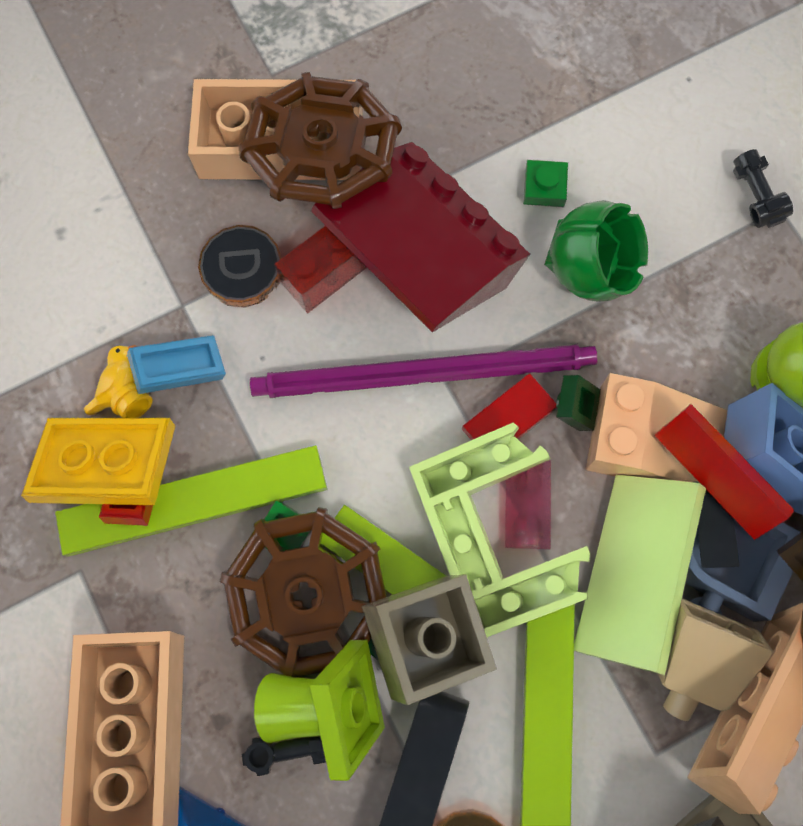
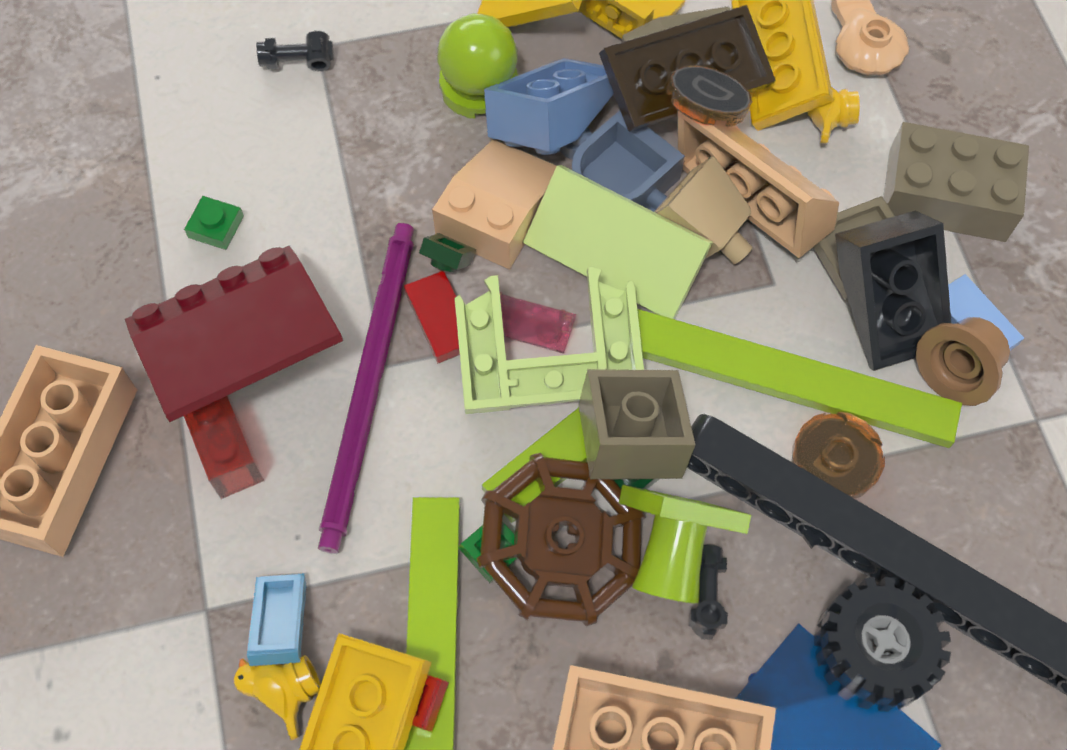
camera: 80 degrees left, 10 degrees down
(240, 266) = (186, 533): black tile -> none
(324, 108) = (106, 409): reddish brown plate -> none
(599, 251) = (308, 189): green piece -> none
(716, 535) = (604, 171): black sticker -> none
(724, 472) = (551, 145): red tile -> none

